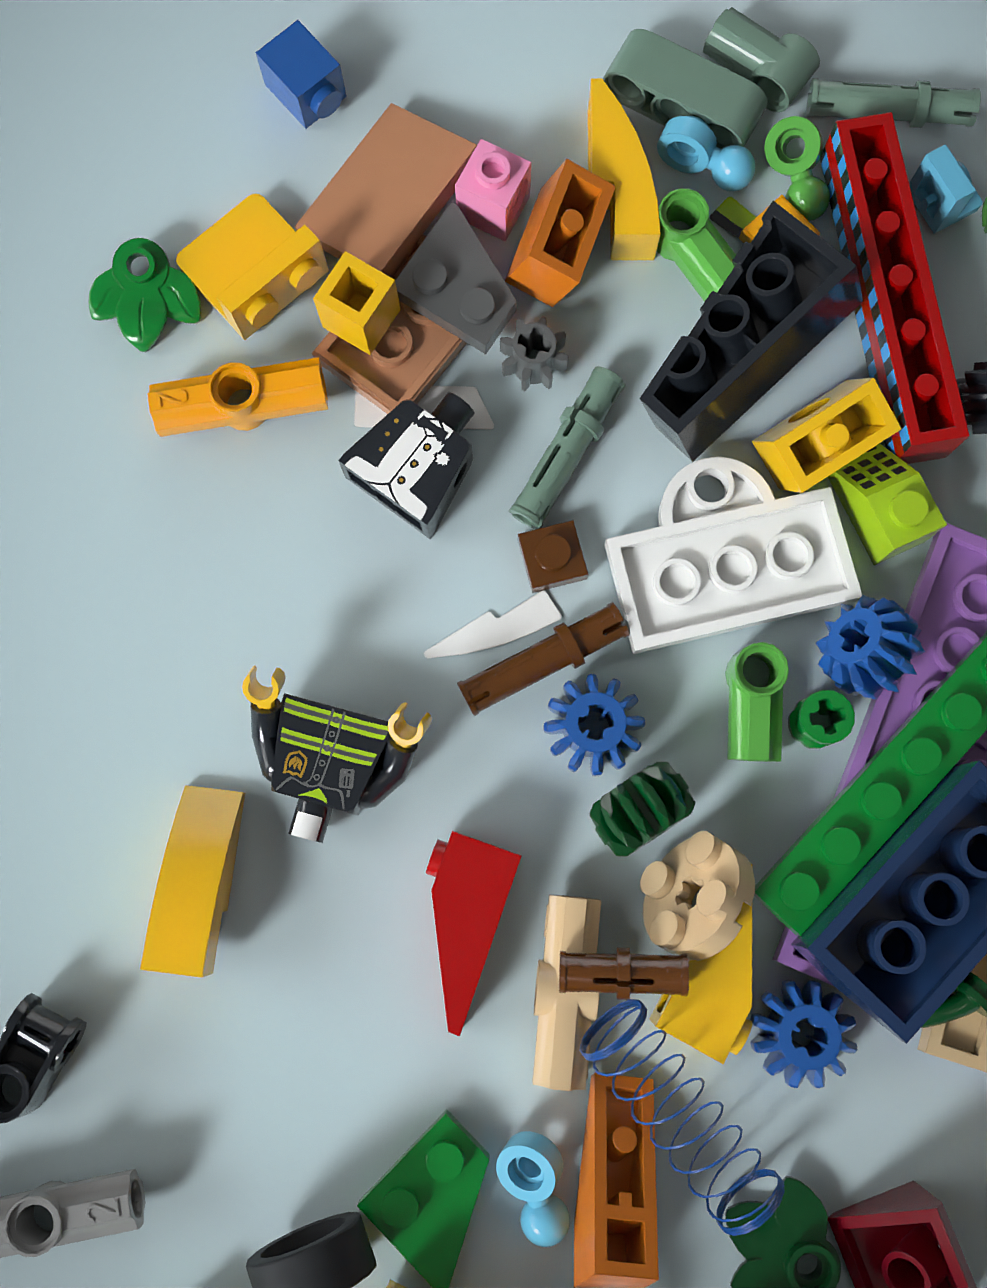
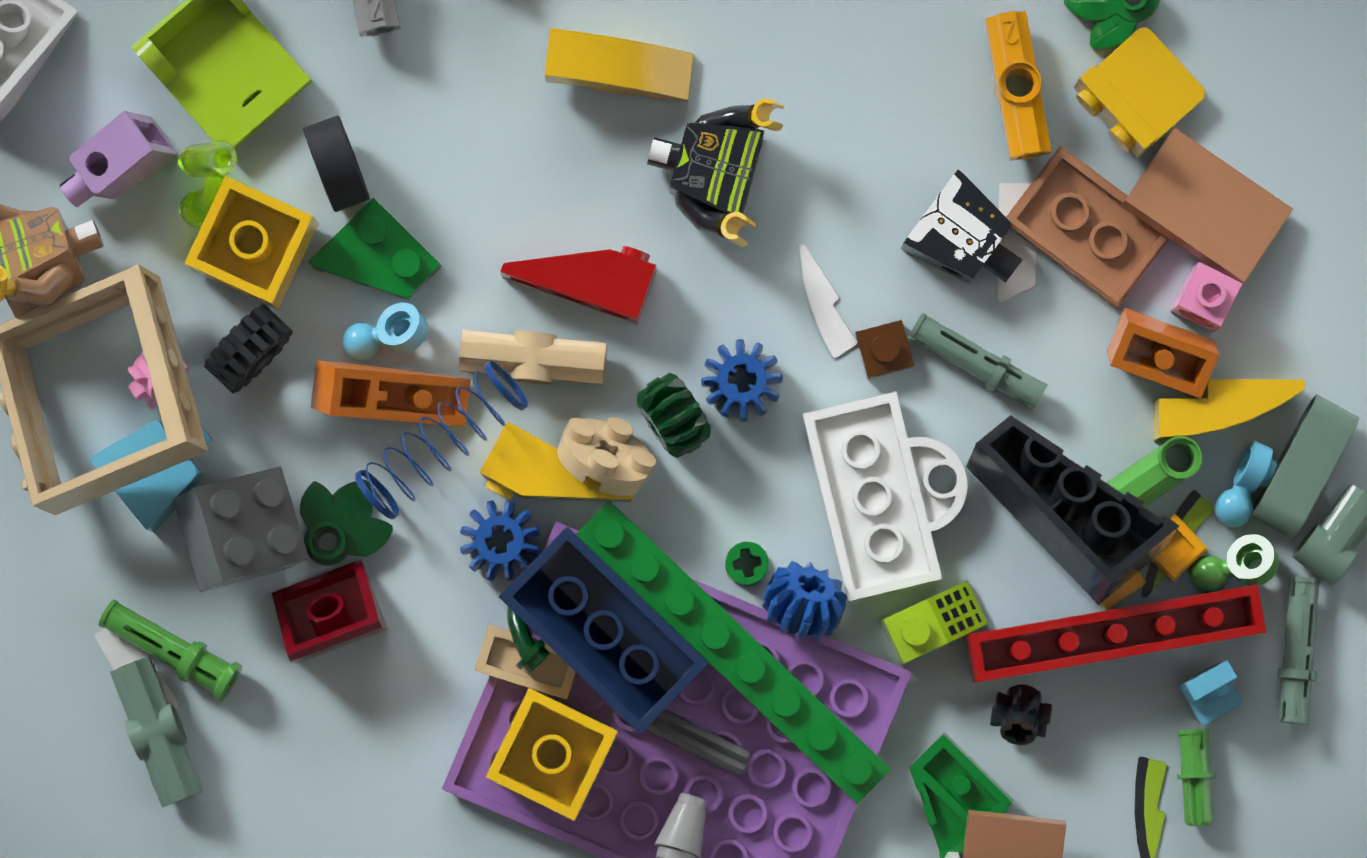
camera: 90 degrees right, 5 degrees up
(302, 74) = (1314, 130): blue brick -> none
(357, 302) = (1091, 182): yellow brick -> none
(457, 283) = (1120, 267): dark grey wing -> none
(531, 337) = (1071, 327): dark grey gear -> none
(544, 658) = (798, 343): reddish brown pin -> none
(624, 973) = (547, 394): reddish brown pin -> none
(756, 711) = (752, 511): bright green piece -> none
(826, 434) = (984, 572): yellow brick -> none

